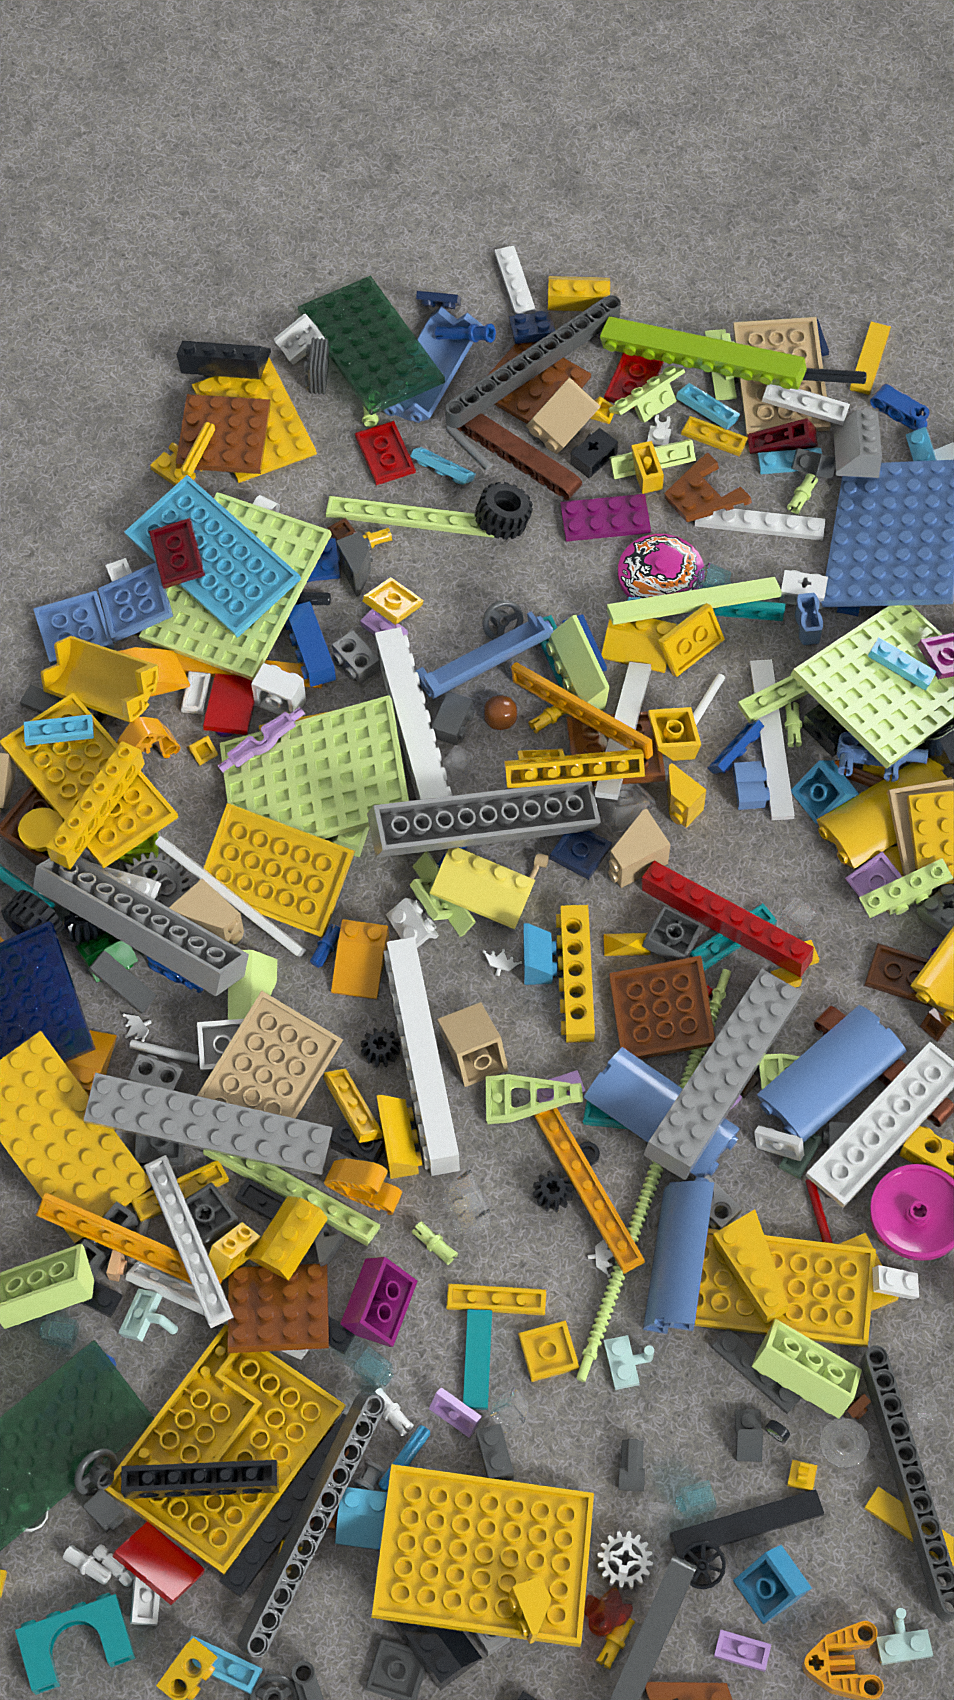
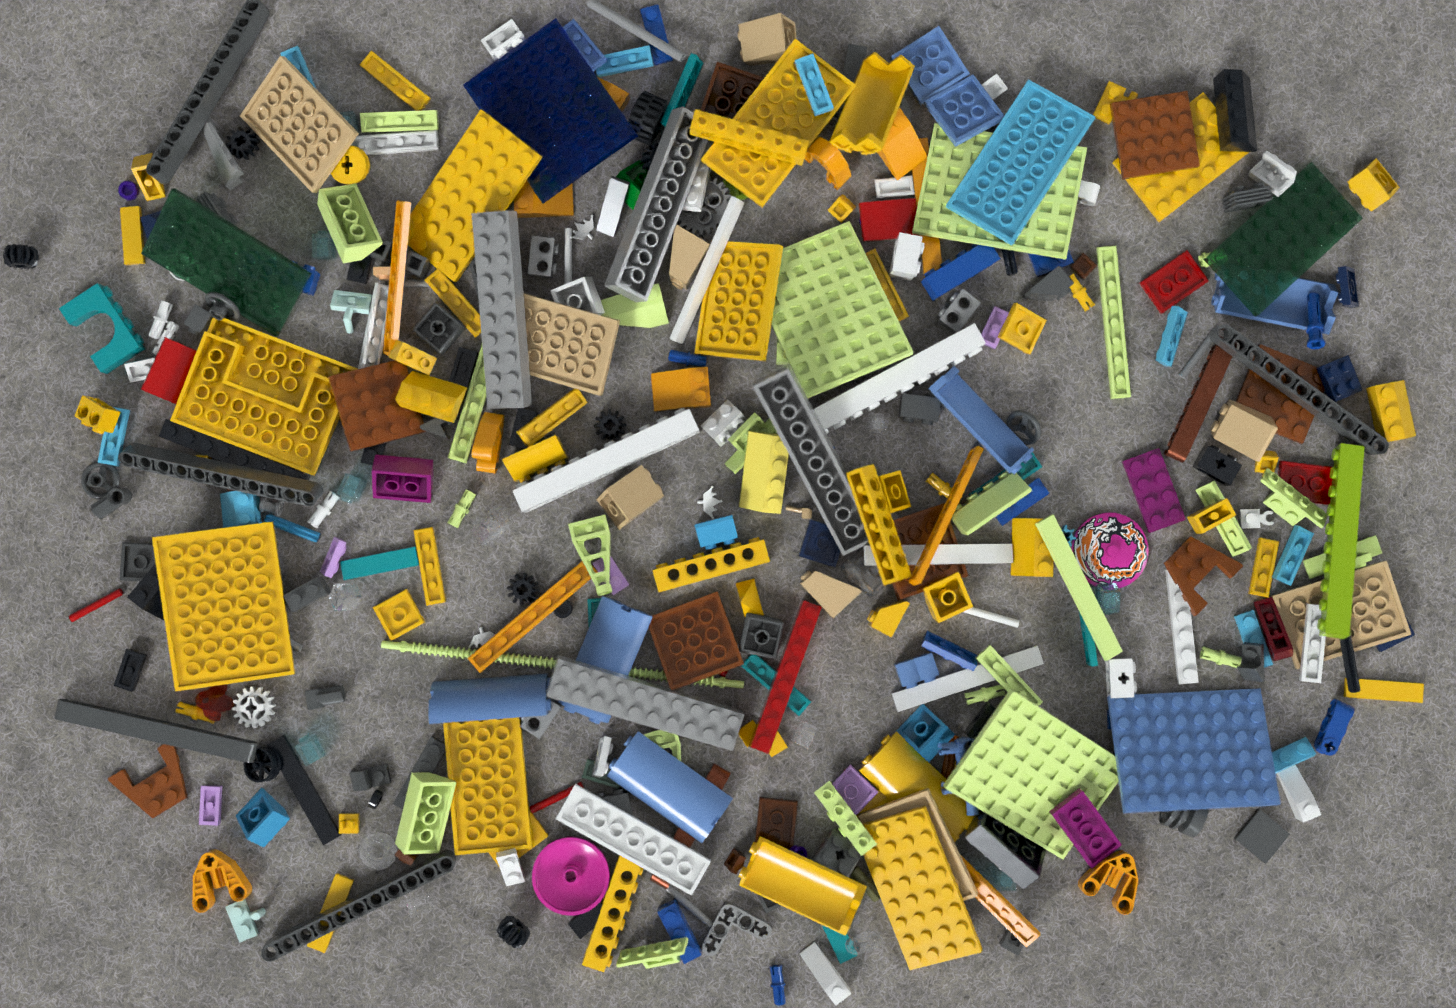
camera: 80 degrees right, 25 degrees up
(39, 827) = (724, 98): yellow tile -> none
(177, 553) = (1014, 131): dark red tile -> none
(188, 1242) = (407, 322): white tile -> none
(197, 449) = (1127, 118): yellow axle -> none
(200, 1479) = (224, 384): black brick -> none
(250, 746) = (862, 262): lavender piece -> none
(340, 259) = (1373, 185): none -> yellow slope
(500, 712) = (937, 446): dark orange hair -> none
(503, 510) = (1147, 403): black tyre -> none
(514, 280) = (1390, 350): white plate -> none
(531, 1604) = (188, 651): yellow slope -> none
(623, 1362) = (404, 672): light aqua plate -> none
(691, 640) = (1042, 592): yellow tile -> none
(750, 1261) = (496, 753): yellow wedge -> none
(808, 618) = (1092, 686): medium blue brick -> none
(858, 445) = (1277, 698): light grey slope -> none
(902, 663) = (1053, 779): medium azure plate -> none

